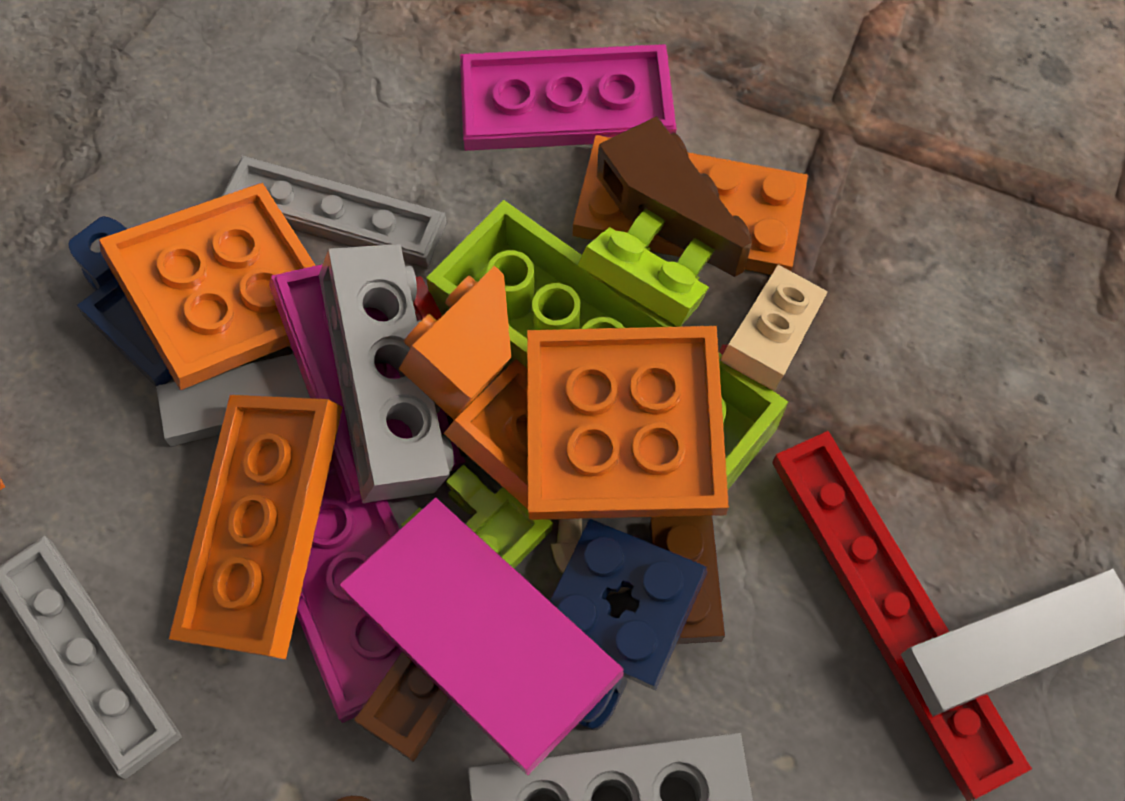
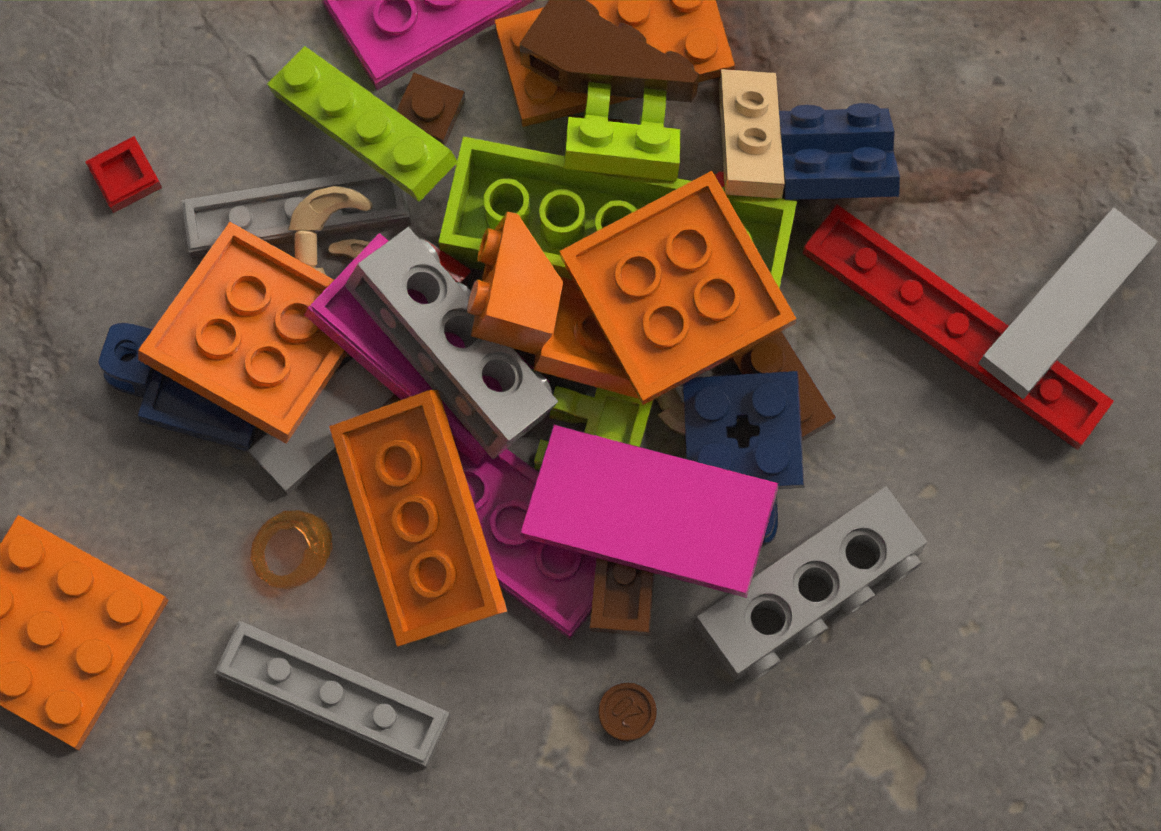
camera: 25 degrees left, 10 degrees up
(164, 498) = (314, 559): none -> clear orange piece
(212, 117) = (123, 174): none -> red tile
(337, 214) = (314, 212): none -> tan piece
(428, 160) = (362, 123): none -> lime plate
(497, 179) = (432, 106): none -> reddish brown plate
(853, 380) = (838, 152): none -> dark blue plate

